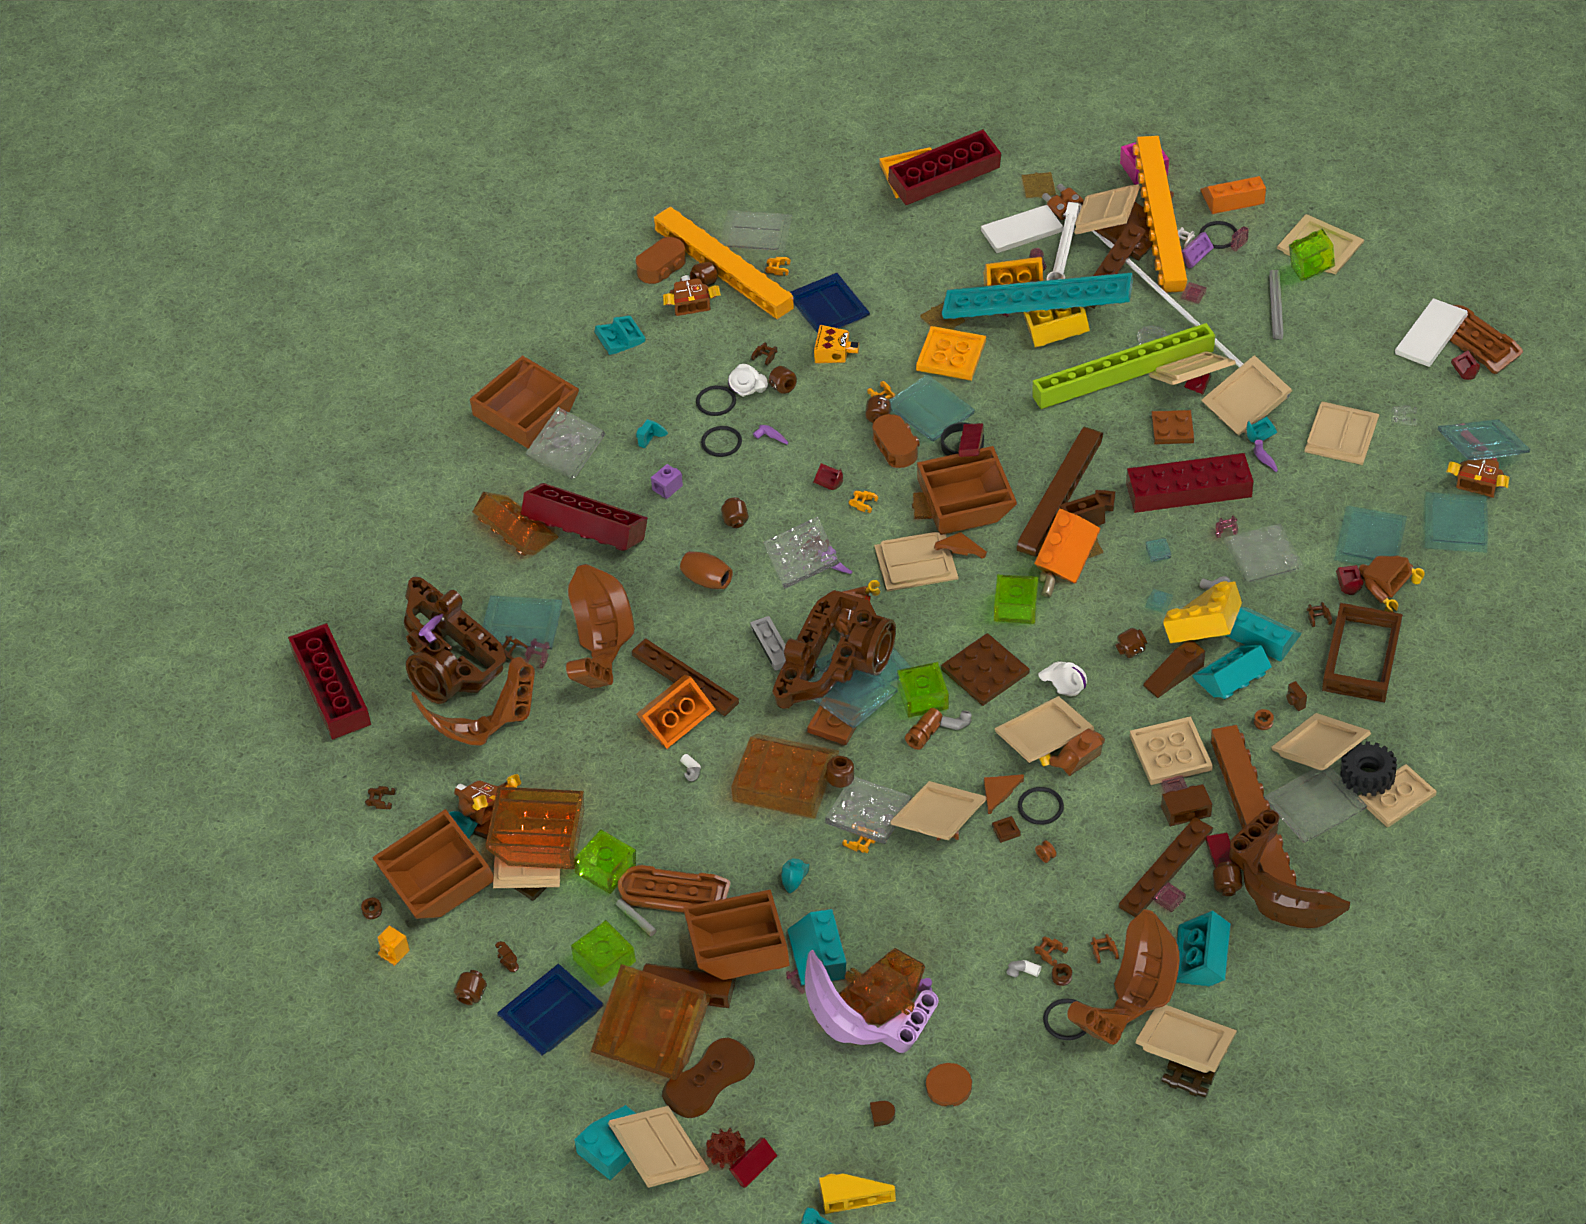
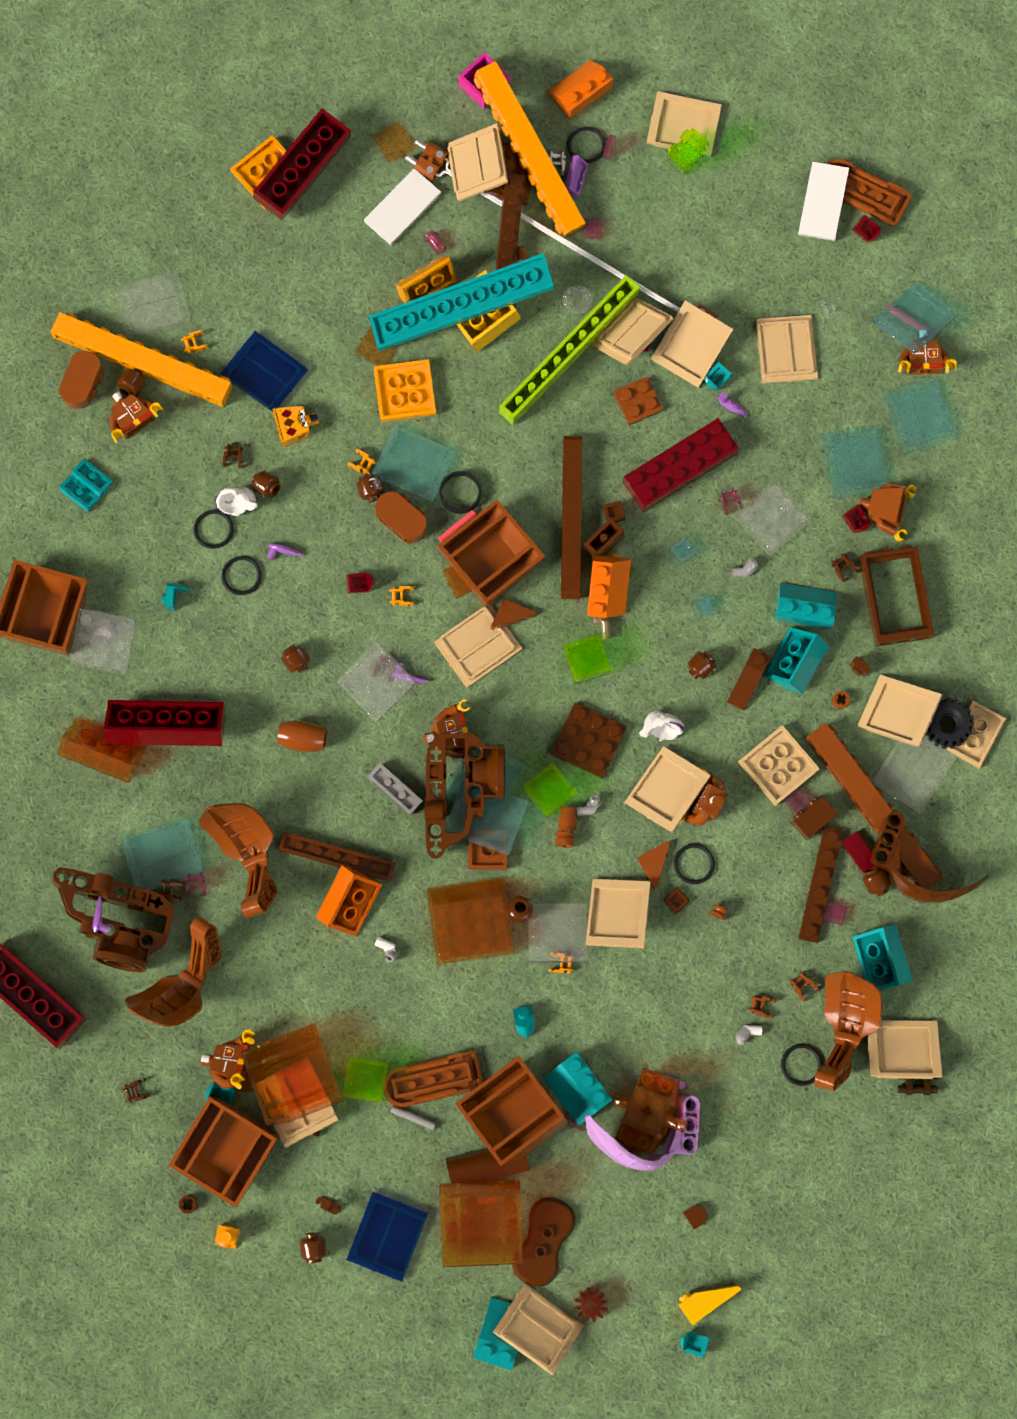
camera: 30 degrees left, 30 degrees up
(602, 953) = (406, 1168): clear neon green brick -> none
(666, 481) = (217, 646): medium lavender brick -> none
(753, 1162) = (617, 1307): dark red tile -> none
(948, 1084) = (736, 1167): dark orange tile -> none
(971, 439) = (474, 498): dark red tile -> none
(1063, 980) = (784, 1031): reddish brown bush -> none
(1065, 242) = (453, 217): white piece -> none
(1206, 616) = (756, 619): yellow slope -> none
(1276, 304) = (672, 215): light grey axle -> none

